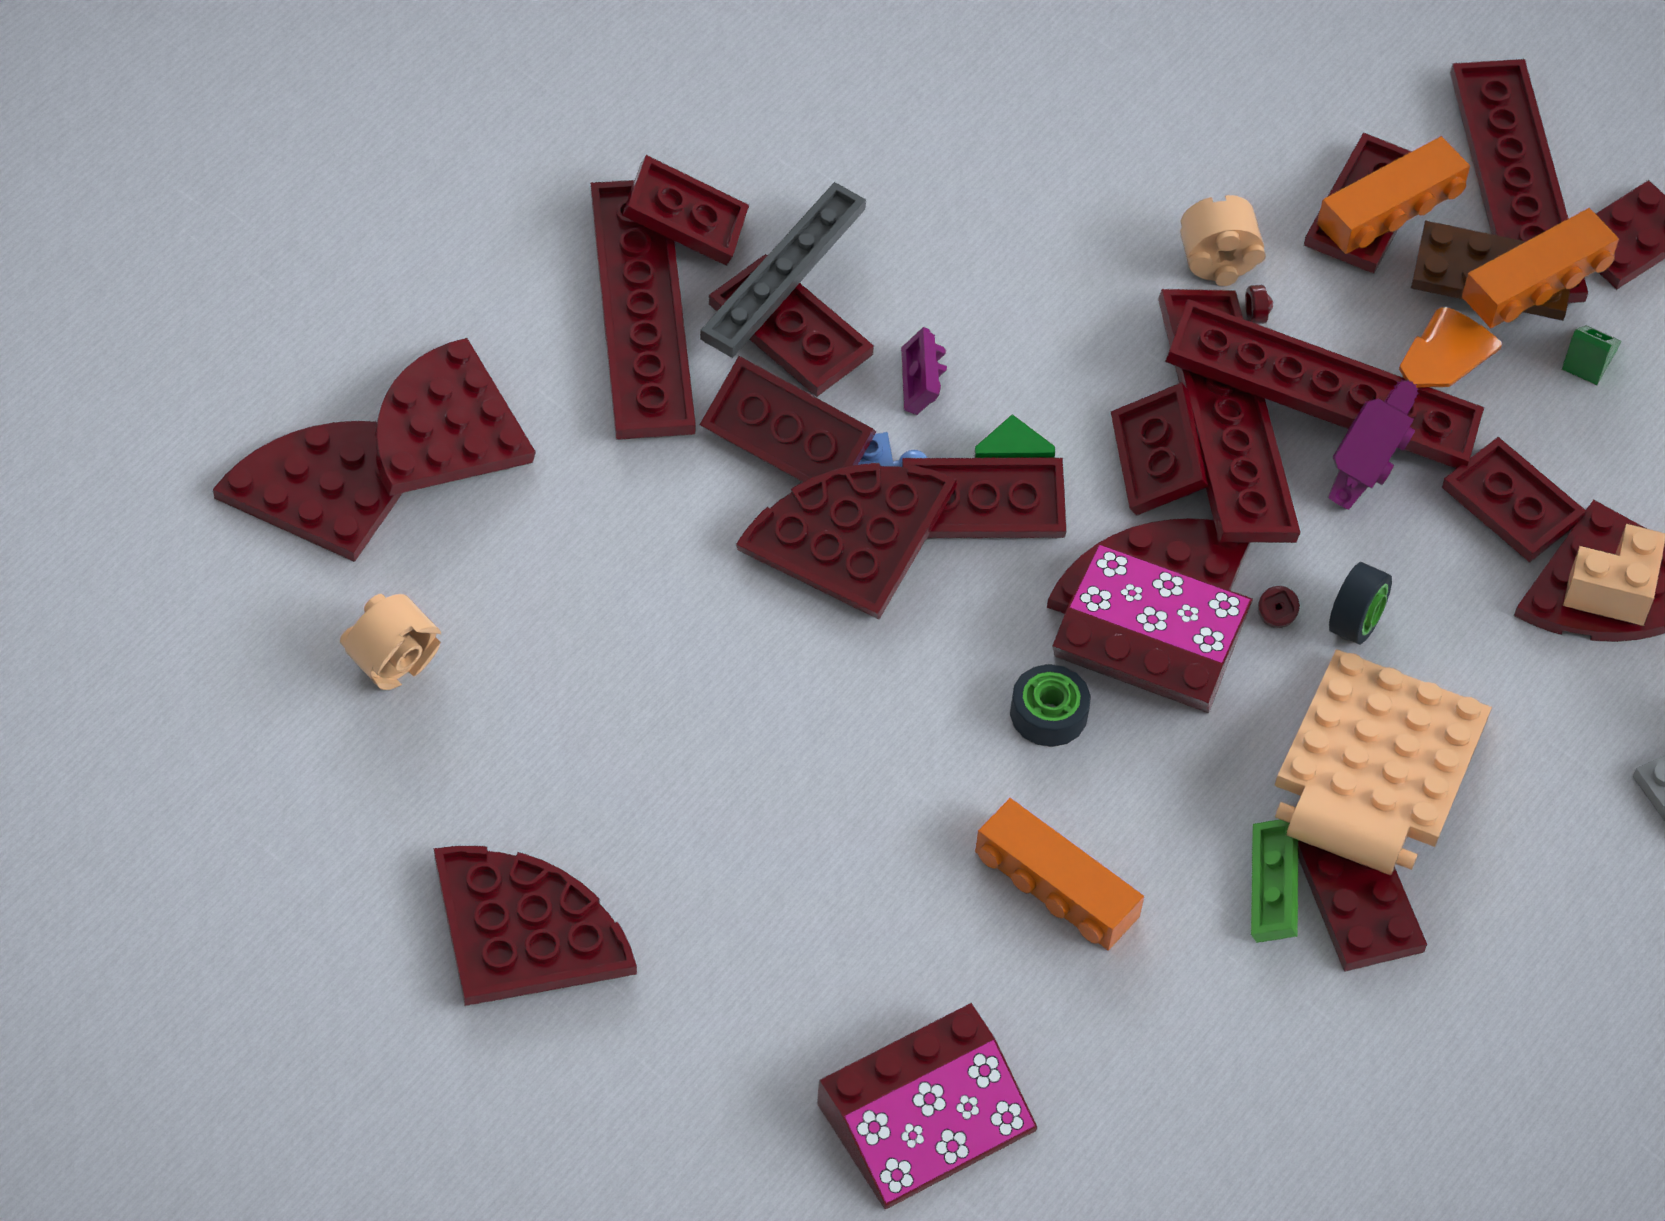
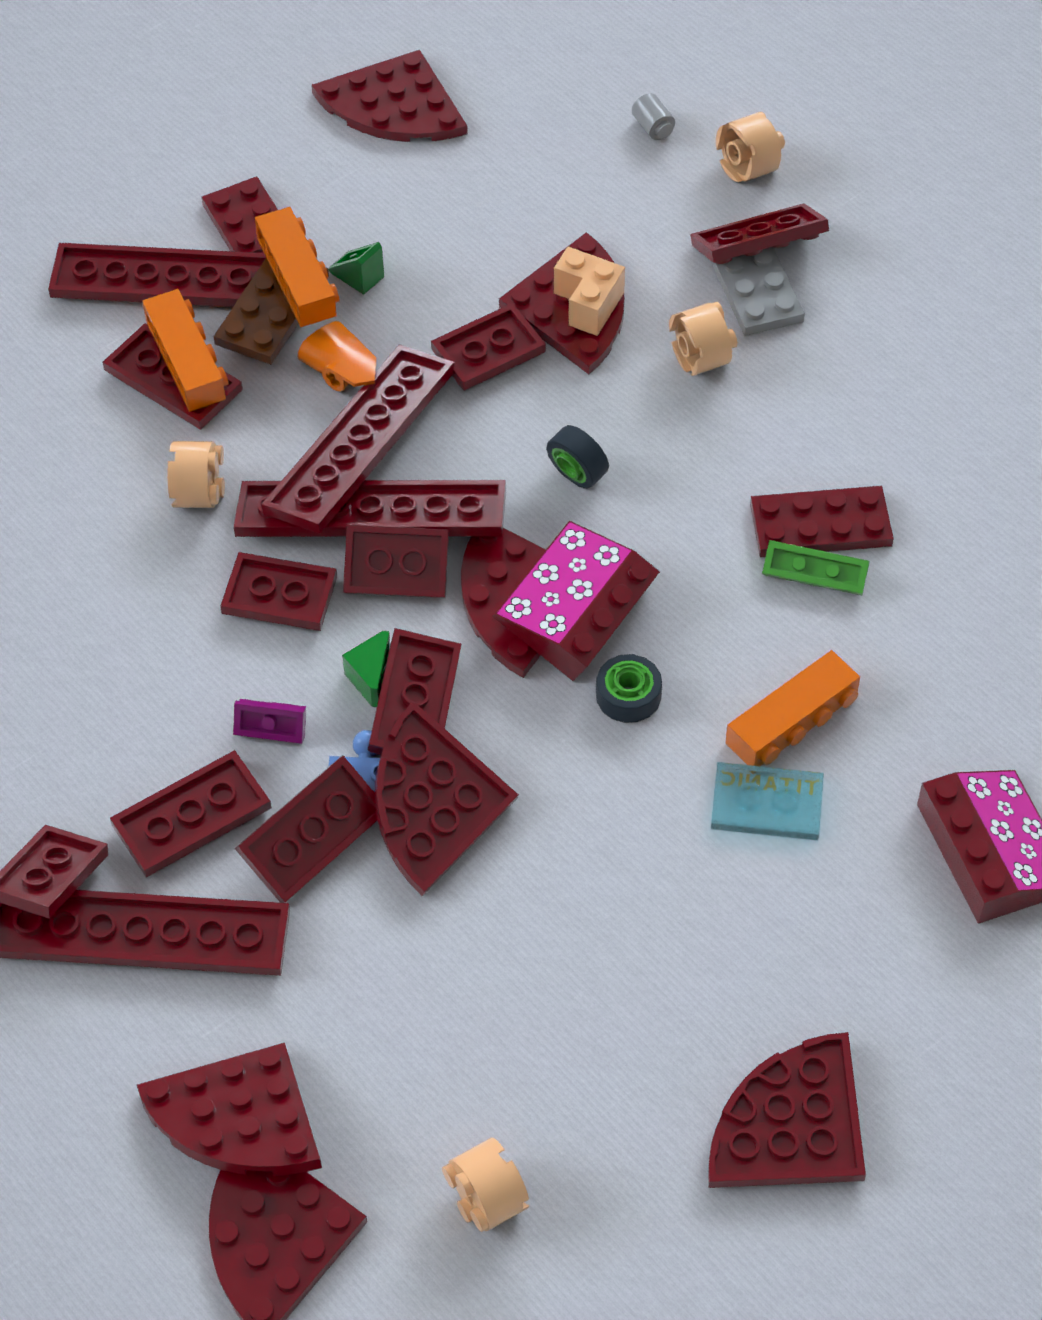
camera: 75 degrees left, 0 degrees up
(782, 270) = (141, 801): dark grey plate -> none
(933, 867) = (767, 801): none -> clear light blue tile
(1096, 353) = (279, 591): none -> dark red plate
(1258, 304) = (259, 468): dark red tile -> none
(1278, 606) = (558, 514): dark red tile -> none
(1371, 443) = (430, 412): magenta hinge -> none
(1377, 762) = (725, 477): light nougat plate -> none
(1586, 711) = (702, 338): none -> light nougat brick

